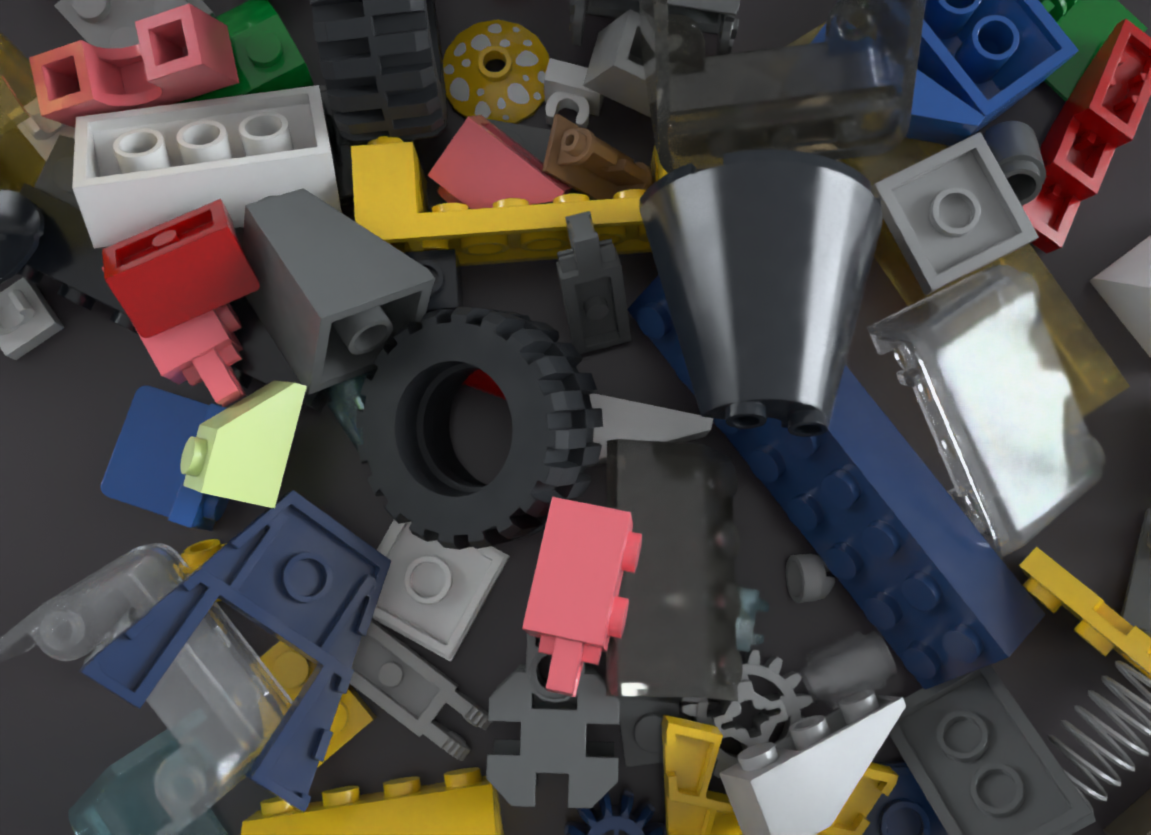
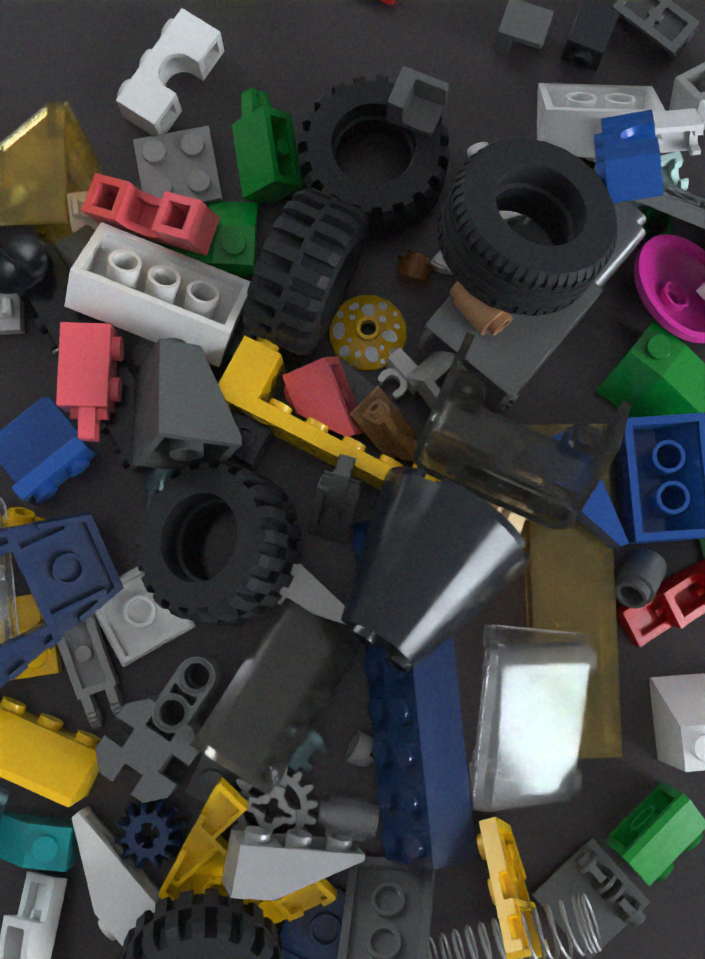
camera: 35 degrees right, 0 degrees up
(179, 269) = (101, 350): red panel -> none
(245, 446) = (79, 473): yellowish green slope -> none
(578, 587) = (211, 673): coral hinge -> none
(953, 213) = (578, 588): light grey plate -> none

